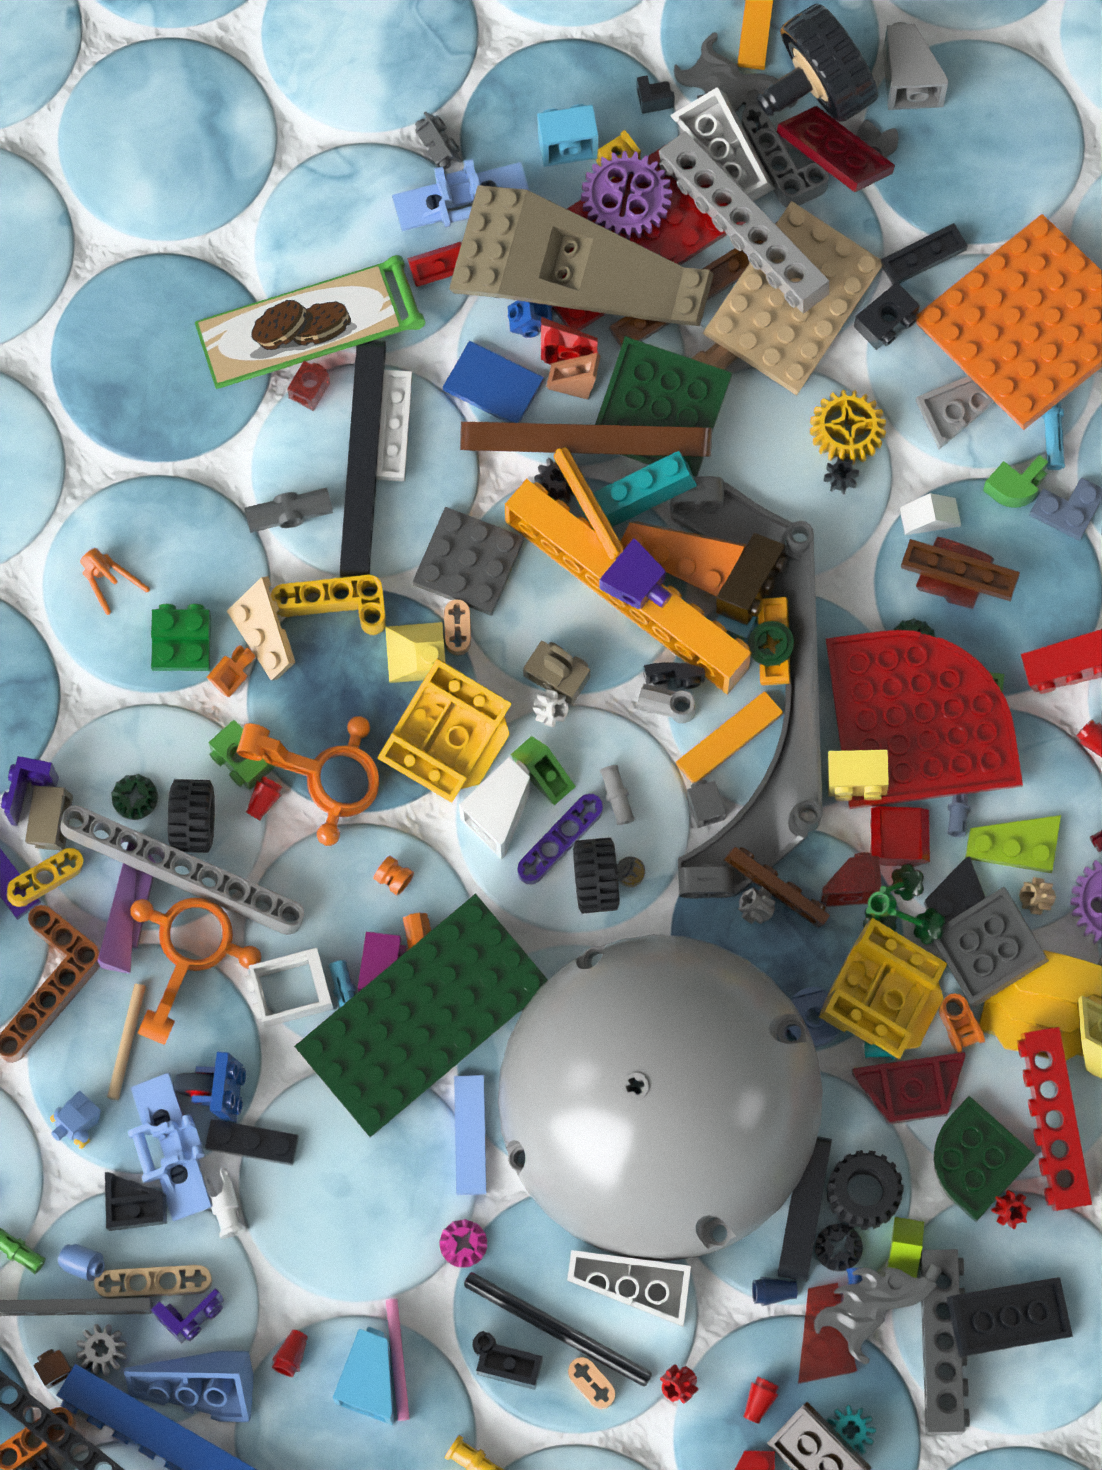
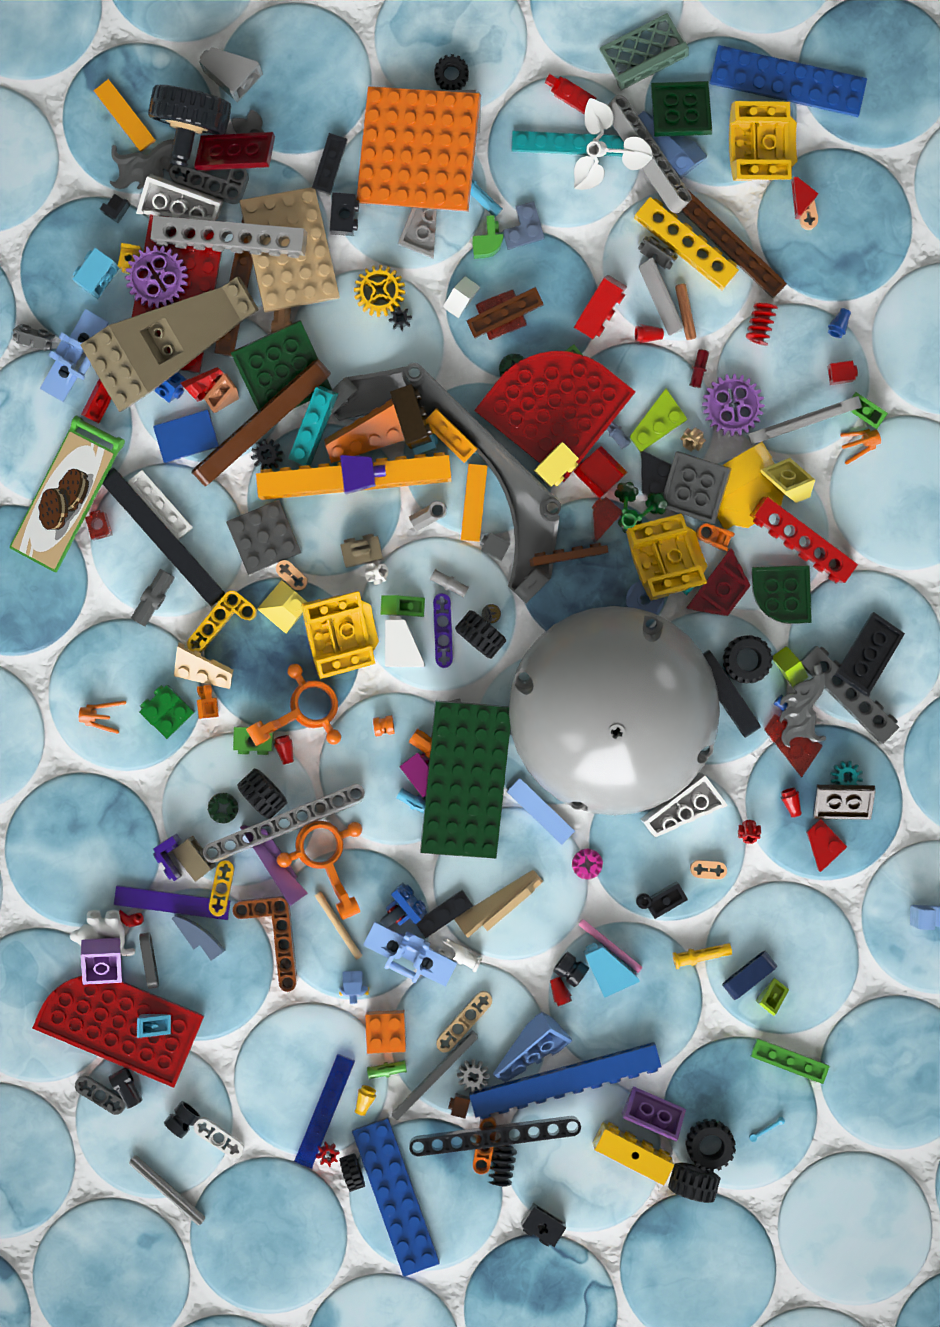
camera: 45 degrees left, 15 degrees up
(58, 1204) = (385, 1031): none -> orange brick
(81, 1262) = (423, 1046): medium blue brick -> none
(132, 1204) = (419, 997): black wing -> none
(190, 1326) = (491, 1032): dark purple bracket -> none
(281, 964) = (385, 849): white window -> none
(320, 1192) = (498, 905): none -> tan wedge
(327, 1338) = (571, 969): none -> black wheel
(557, 1329) = (669, 860): black axle -> none
(588, 503) = (298, 456): light orange axle -> none
(684, 674) = (423, 493): black slope -> none
(756, 905) = (567, 573): light grey gear -> none
(758, 640) = (443, 442): dark green gear -> none
(771, 1291) = (749, 747): dark blue cone -> none
(842, 1260) = (752, 690): black gear -> none
(1019, 1209) = (822, 602): red gear -> none

